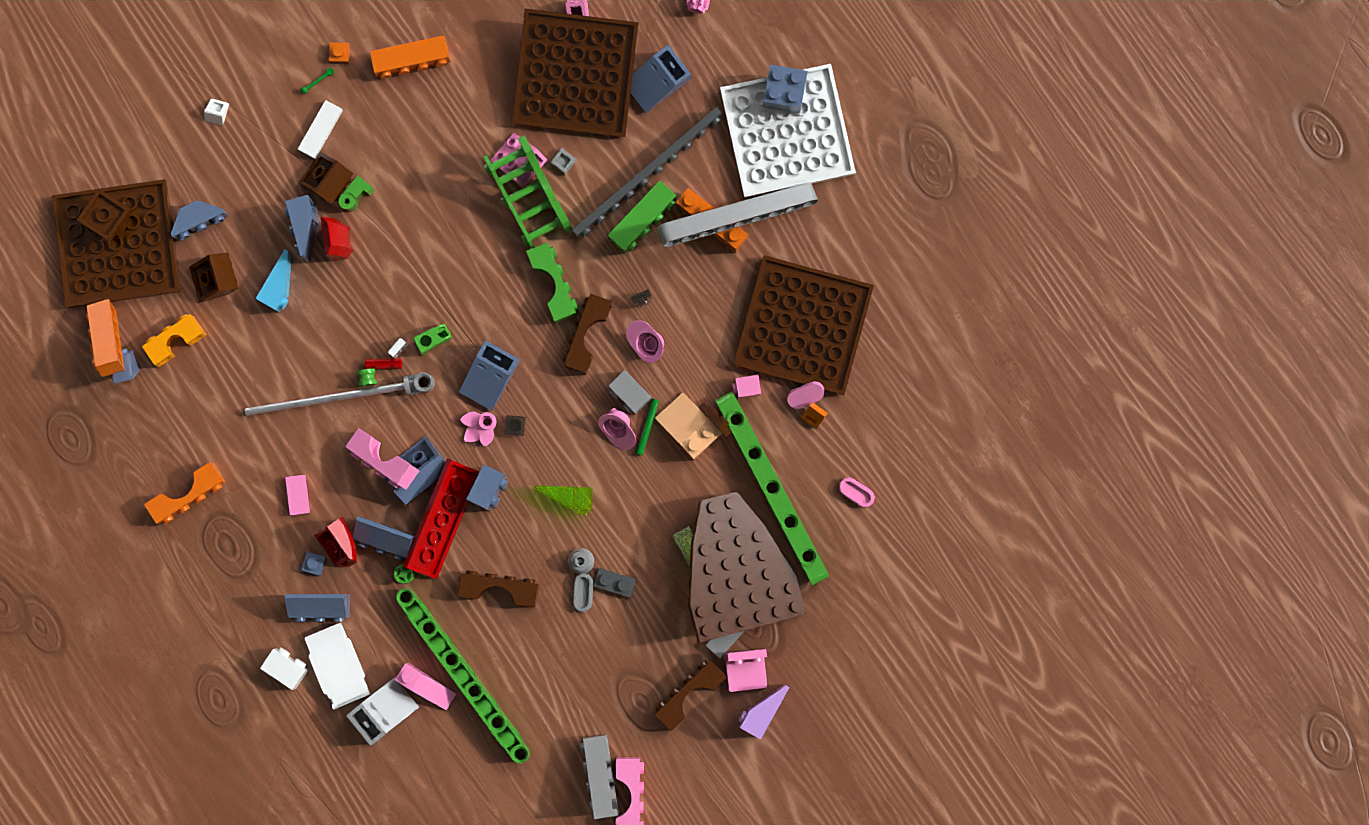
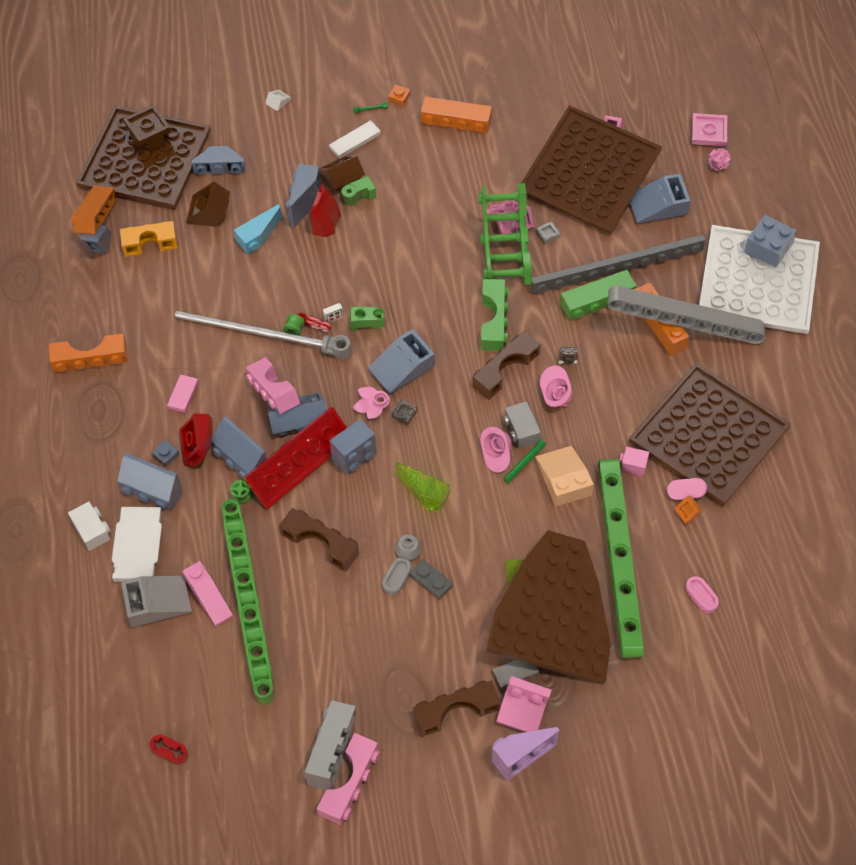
camera: 25 degrees right, 25 degrees down
(720, 422) = (595, 473): reddish brown plate -> none

